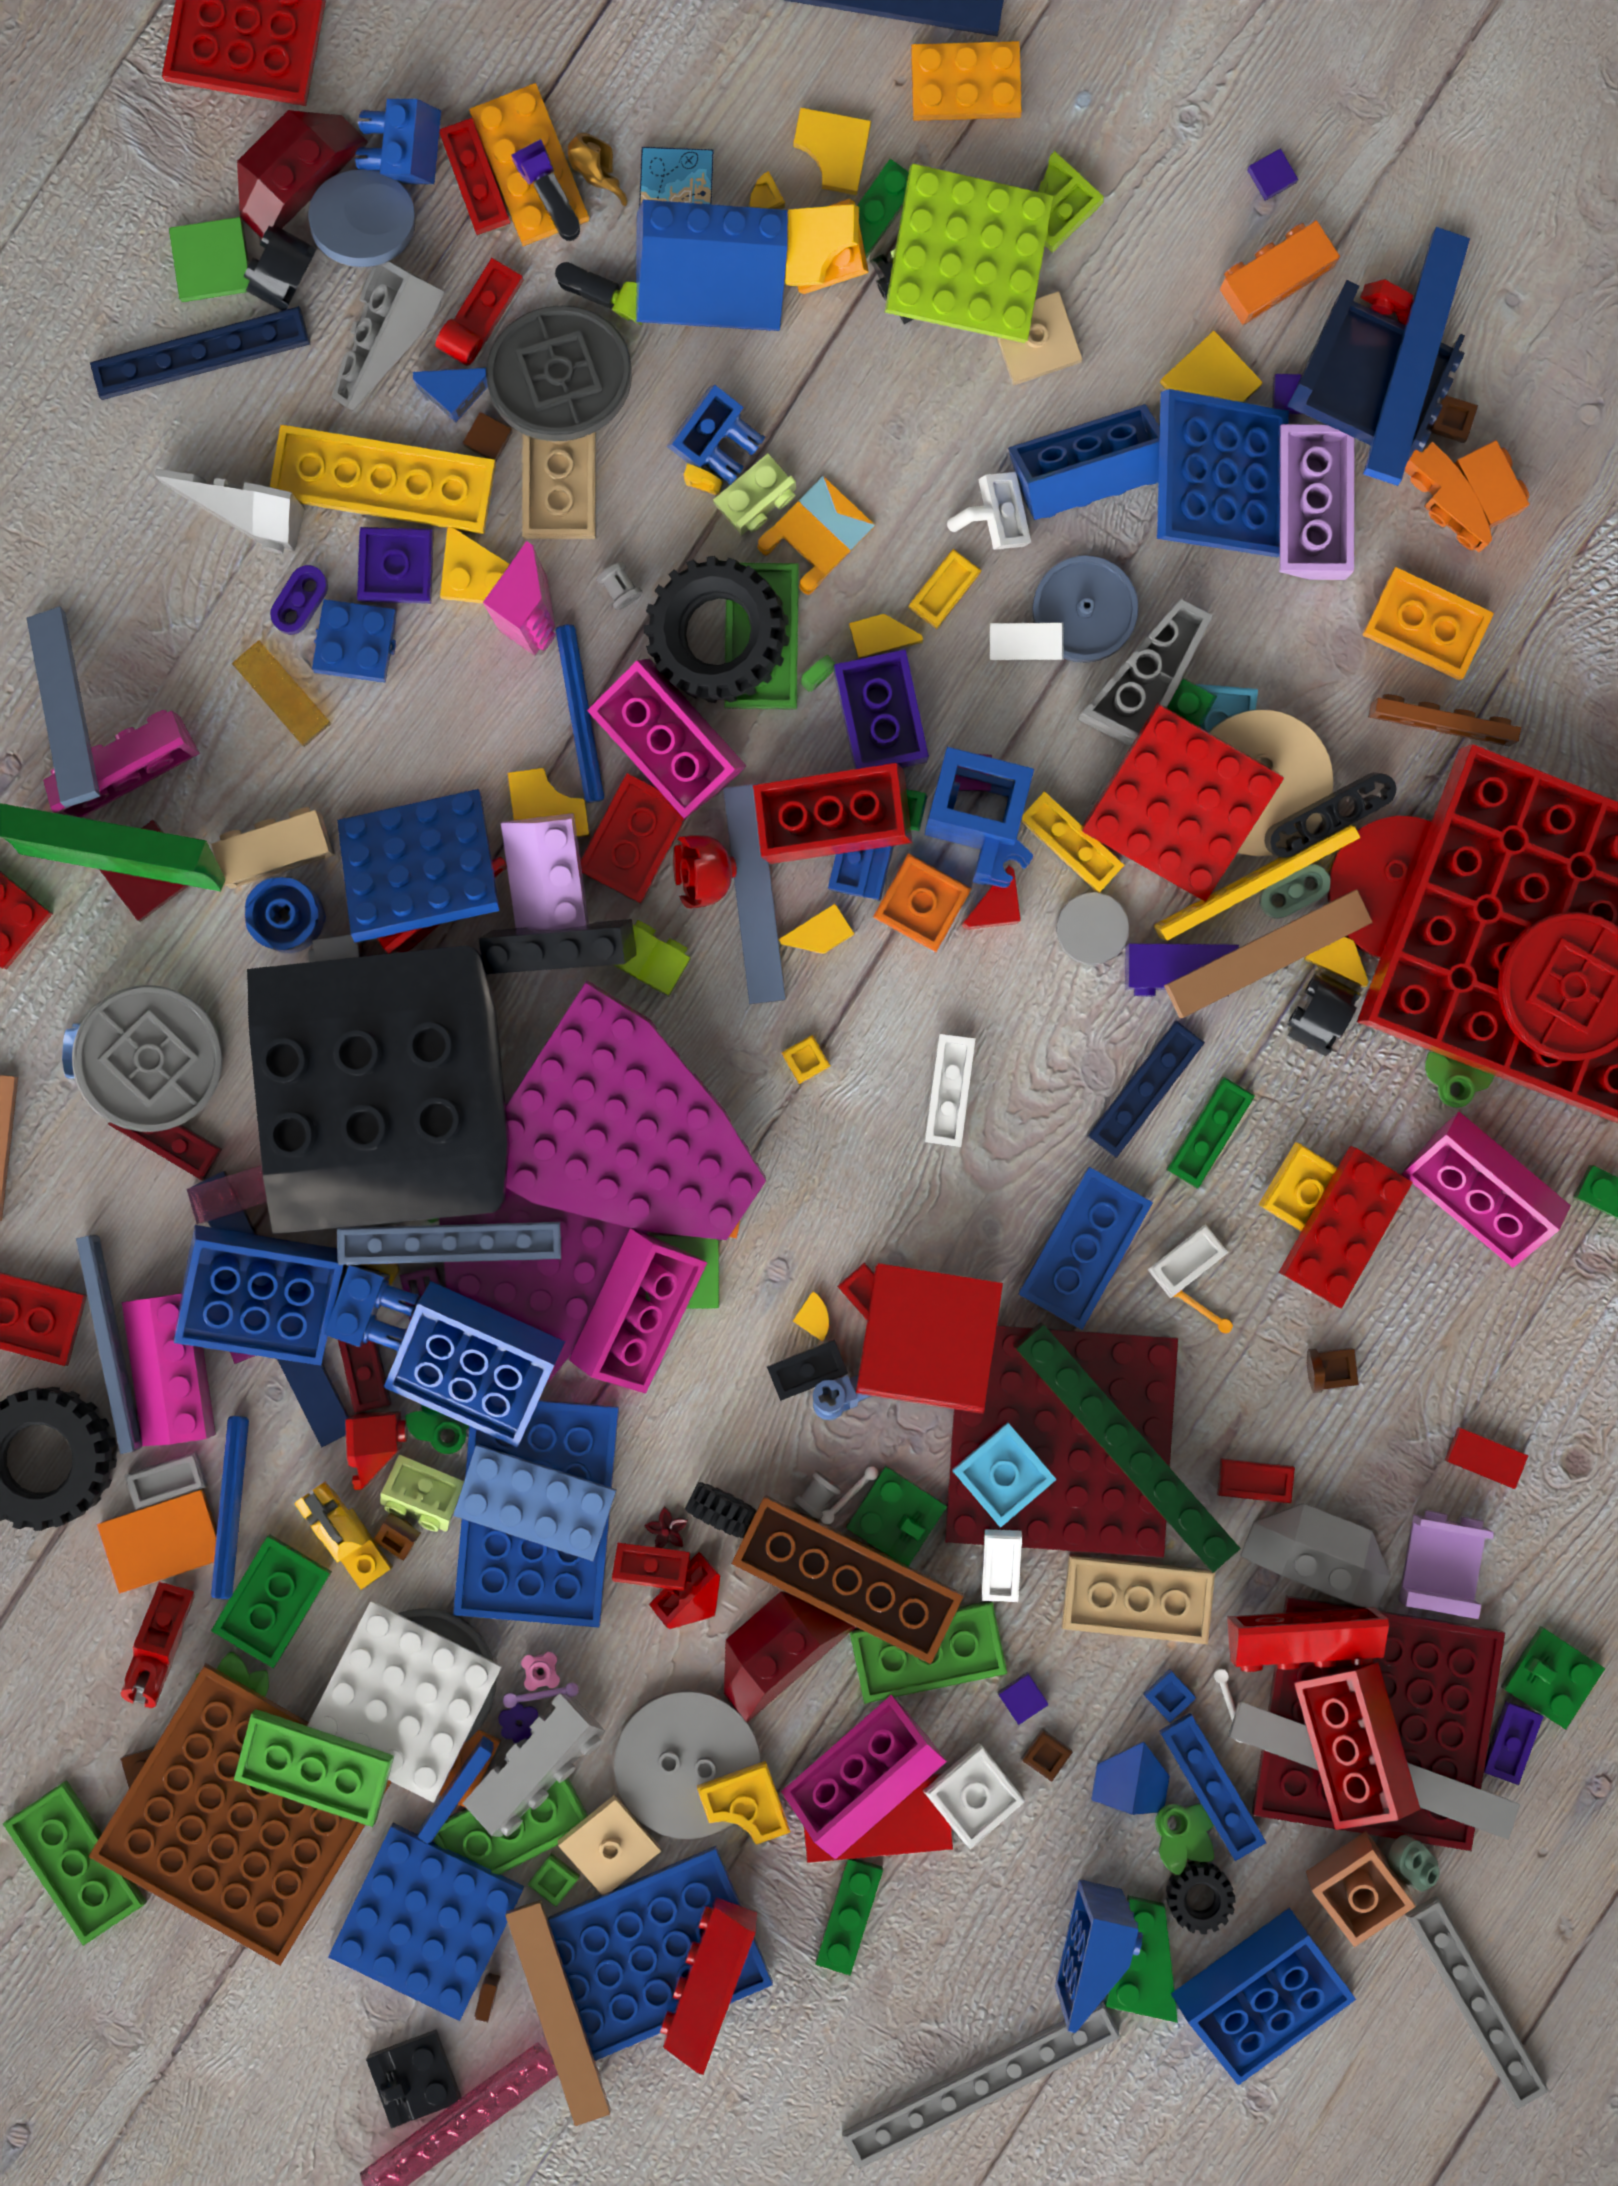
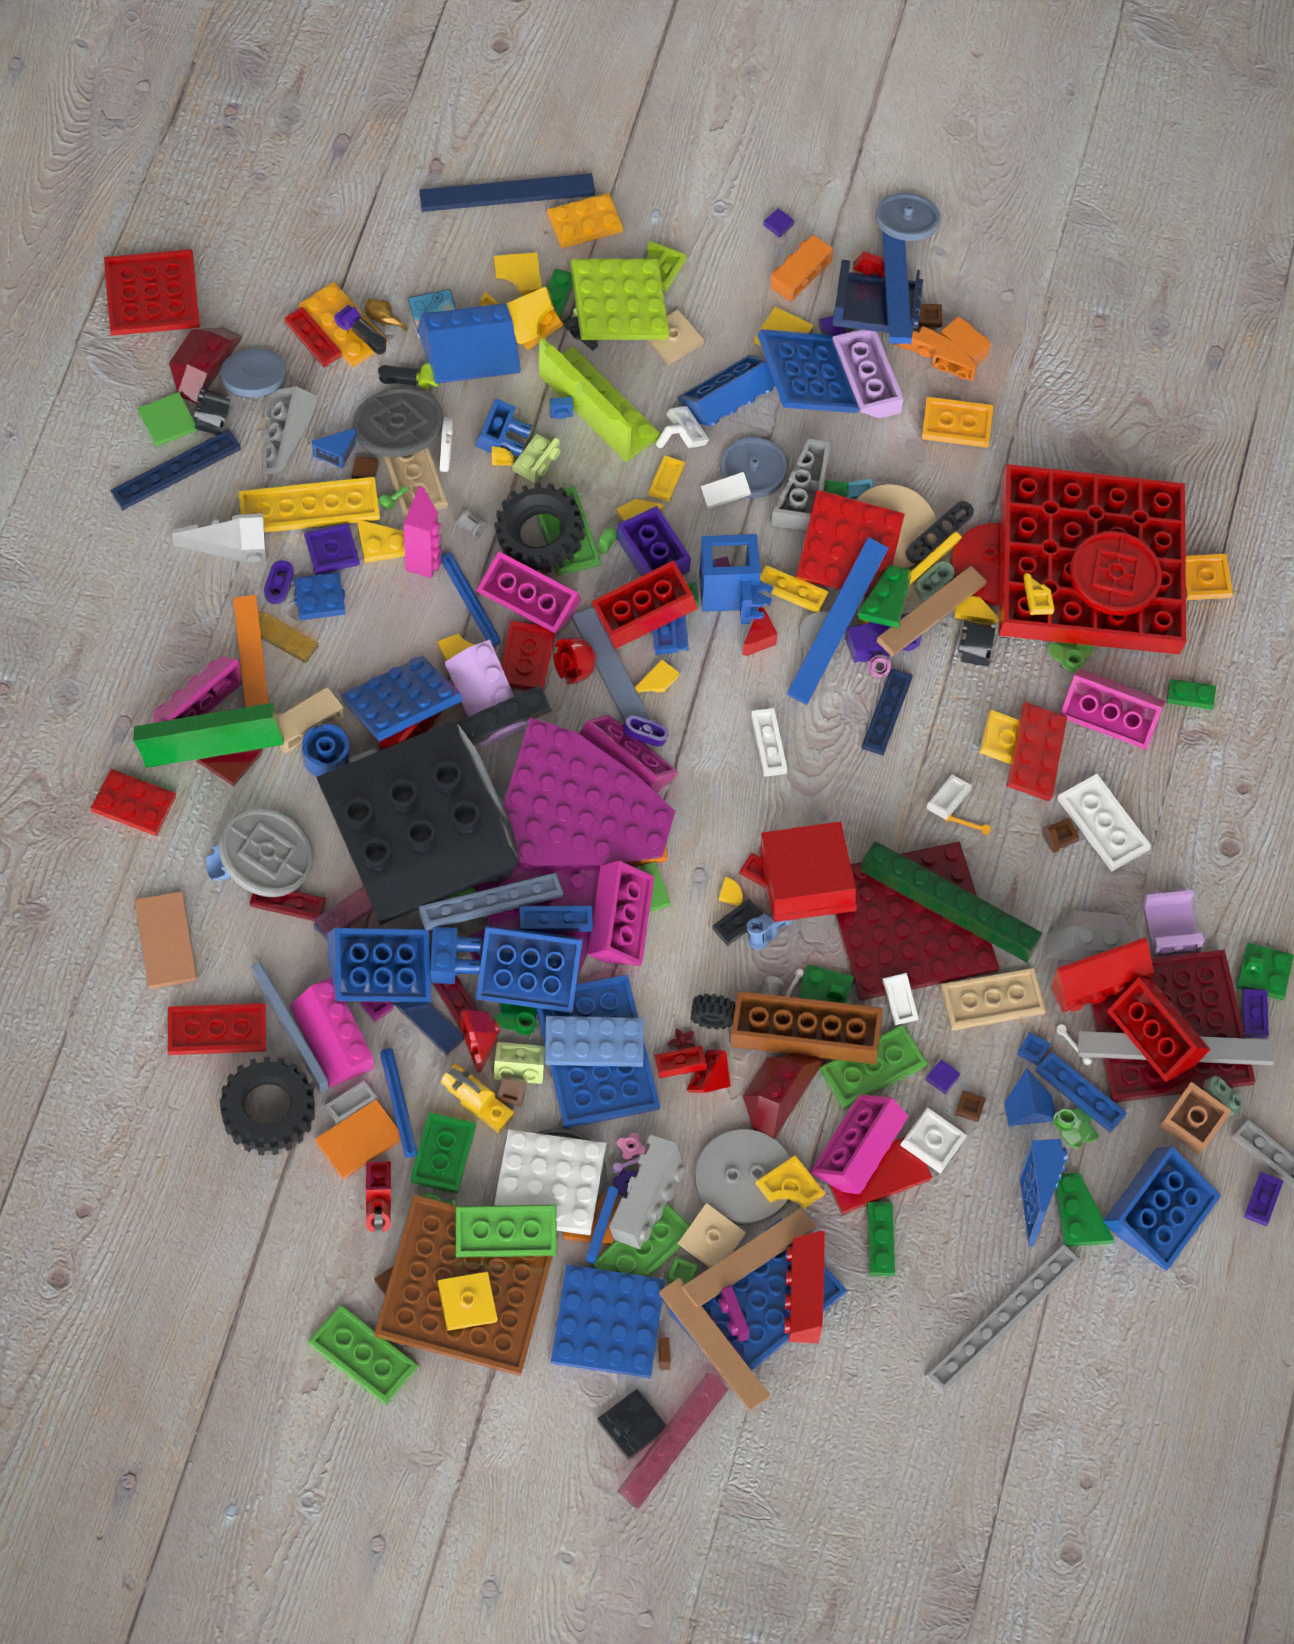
camera: 25 degrees left, 25 degrees down
(63, 707) = (154, 668): sand blue tile -> none
(220, 724) = (251, 650): none -> orange tile
(231, 1847) = (467, 1301): none -> yellow plate
(409, 141) = (270, 326): blue brick -> none
(480, 313) = (340, 404): red plate -> none
(505, 507) = (389, 502): none -> bright green hand
(536, 1297) = (556, 918): none -> blue plate
(597, 1999) = (737, 1323): none -> magenta plate
(620, 435) = (446, 444): none -> white tile
(647, 1904) = (748, 1258): none -> medium nougat tile
(656, 962) = (564, 715): lime brick -> none
(728, 1048) = (633, 754): none -> dark pink slope
(768, 1019) = (645, 730): none -> dark purple plate
(805, 1059) = (674, 751): yellow tile -> none
(819, 420) = (561, 407): none -> blue plate
(821, 528) = (581, 465): light orange flag -> none
(881, 423) = (596, 401): none -> lime piece
(922, 902) = (714, 645): orange plate -> none
(1004, 1474) = (882, 940): medium azure plate -> none
(1085, 1248) = (884, 805): blue plate -> none
(1120, 924) = (837, 621): none -> blue tile
(1157, 1021) = (886, 666): none -> plate
(1205, 917) = (887, 598): none -> green wing
(1207, 1918) = (1102, 1146): black tyre -> none
(1210, 1132) = (935, 725): green tile -> none
(1256, 1480) = (1039, 910): red tile -> none
(1404, 1372) = (1104, 822): none -> white plate
(1414, 2027) = (1263, 1199): none -> dark purple plate
(1430, 717) = (980, 469): dark orange plate -> none
(1437, 993) = (1038, 597): none -> yellow tile
(1481, 226) = (907, 216): none -> sand blue piece
(1486, 1458) = (1173, 858): red tile -> none

